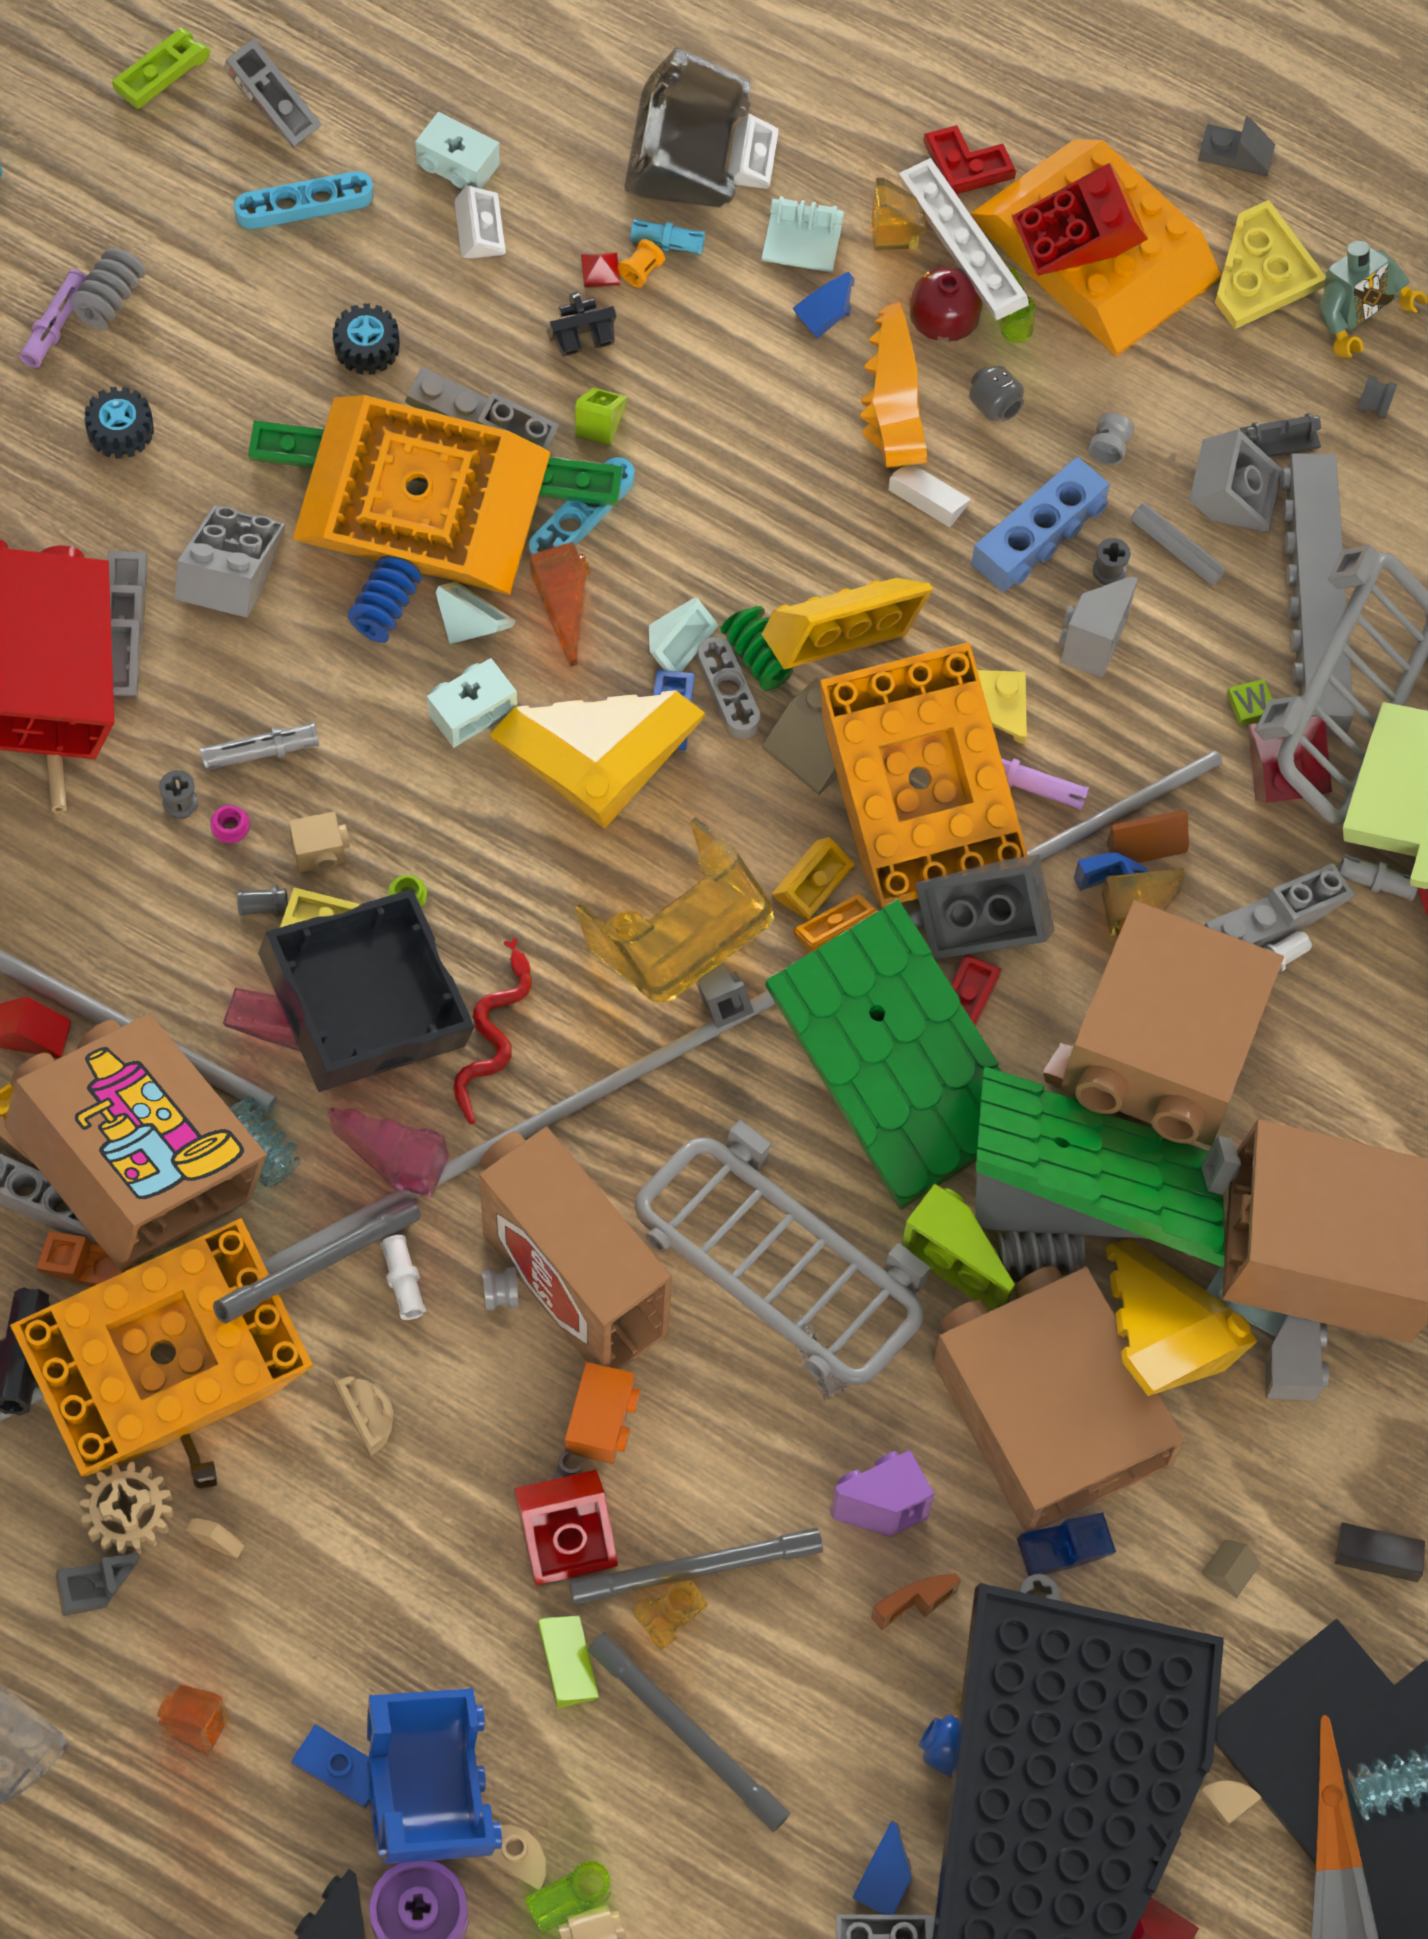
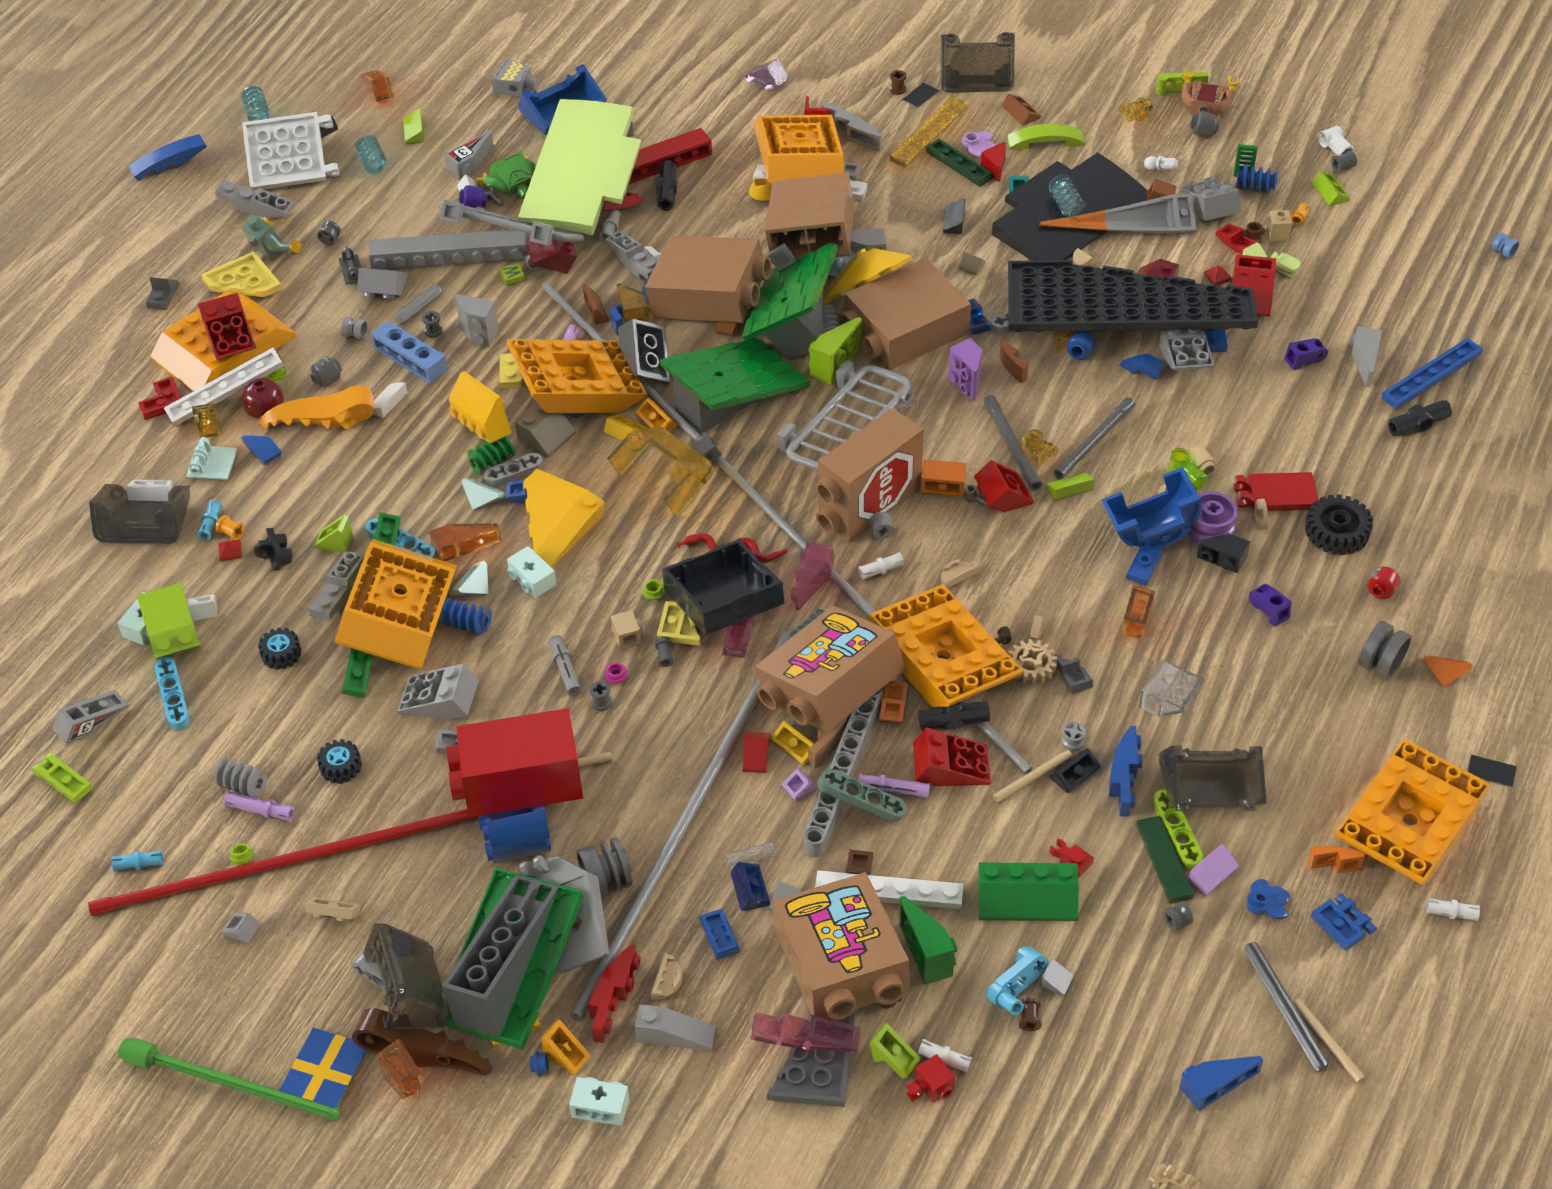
camera: 90 degrees left, 15 degrees down
(250, 1296) = (918, 596): dark grey piece -> none
(419, 177) = (168, 621): none -> lime slope

